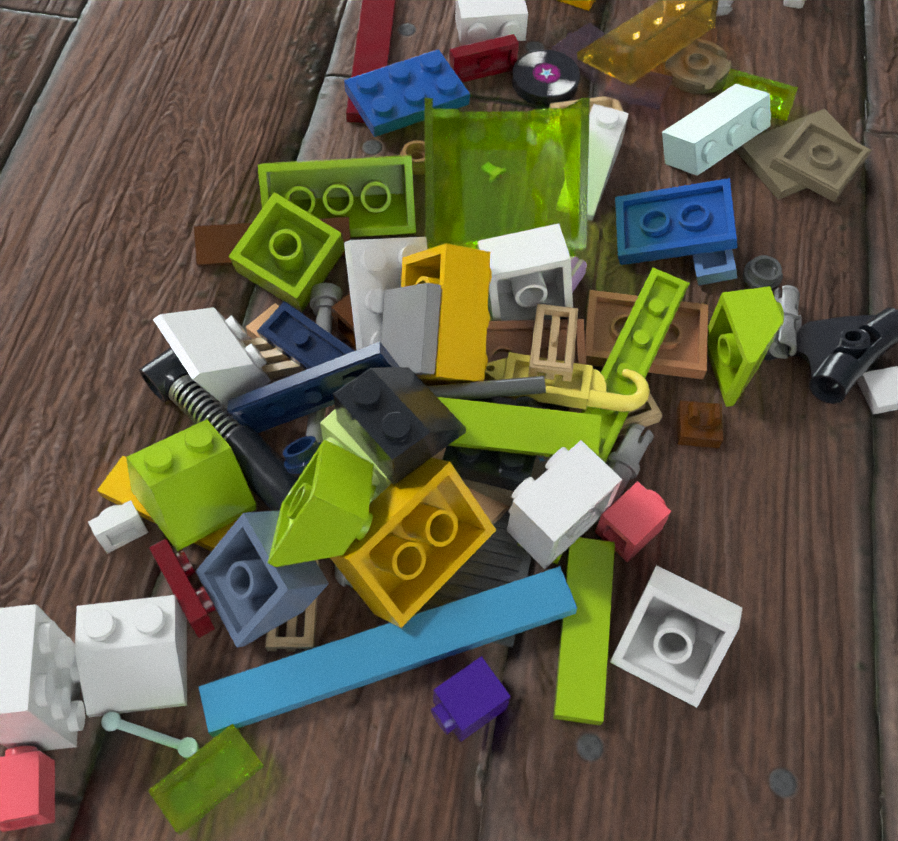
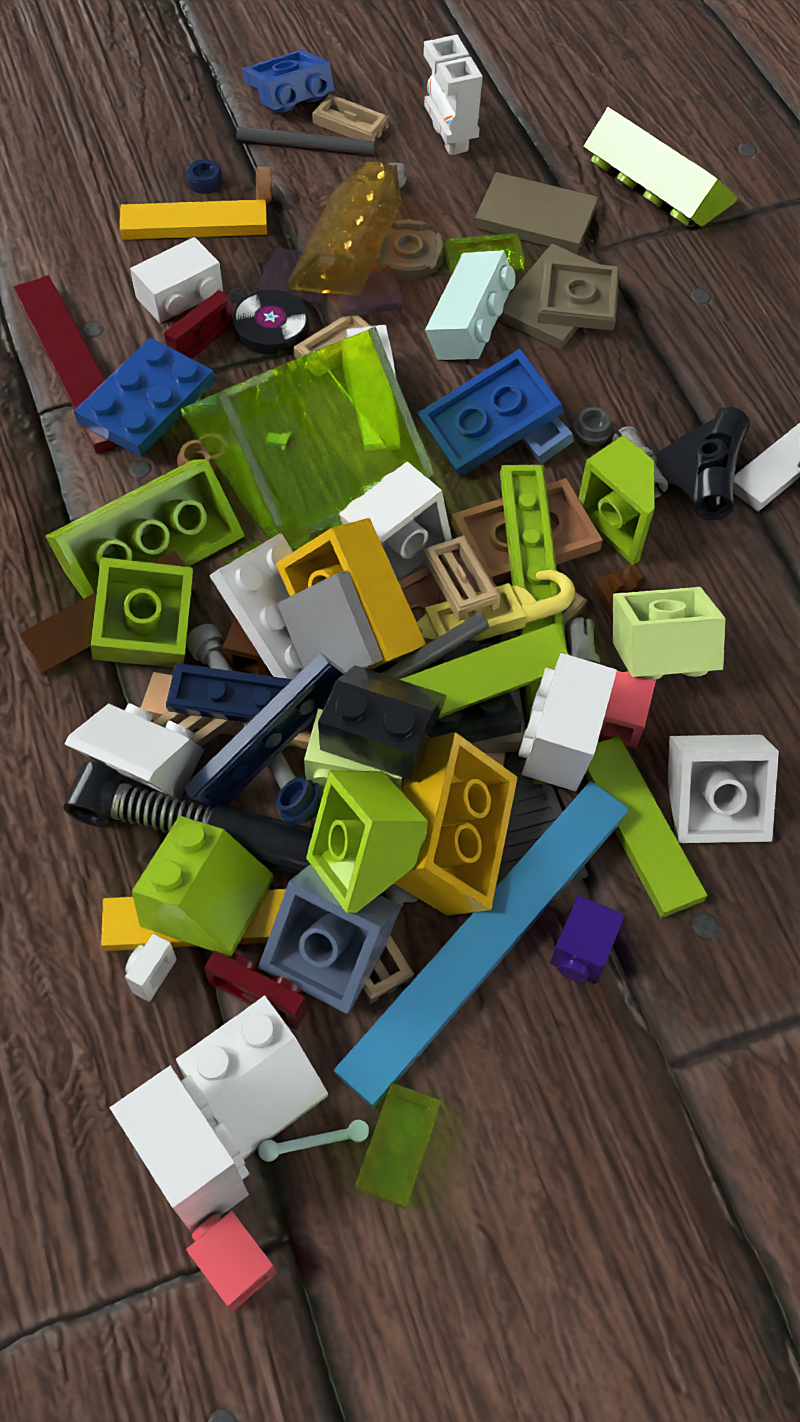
camera: 30 degrees left, 0 degrees up
(709, 475) = (668, 632): none -> yellowish green brick
(829, 79) = (536, 212): none -> dark tan tile

